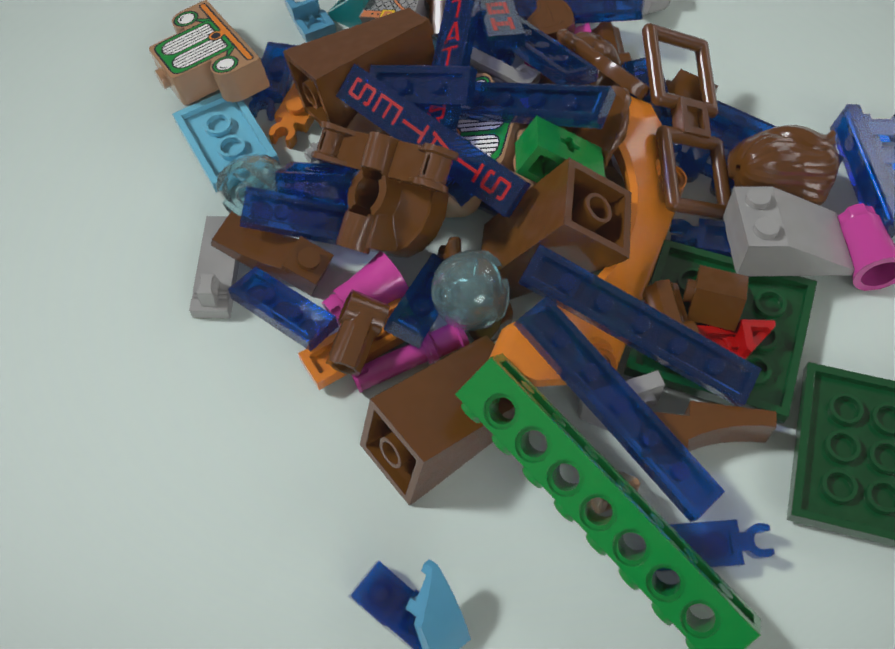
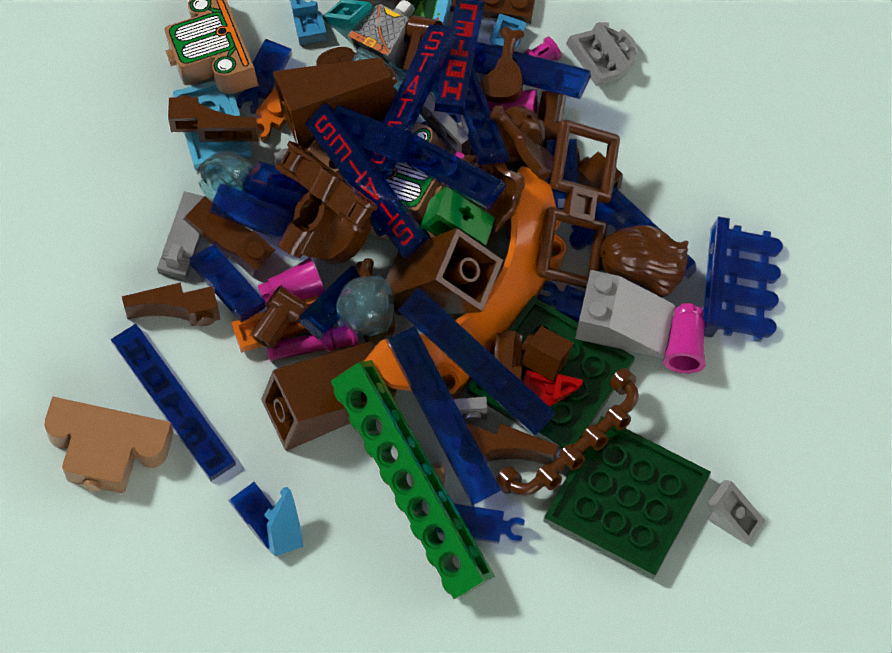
camera: 10 degrees right, 5 degrees up
(155, 556) = (105, 443): none -> medium nougat brick
(211, 346) = (195, 306): none -> reddish brown slope
(225, 133) = (188, 115): none -> reddish brown slope
(246, 479) = (173, 402): none -> clear blue tile
(797, 420) = (571, 455): none -> reddish brown bar

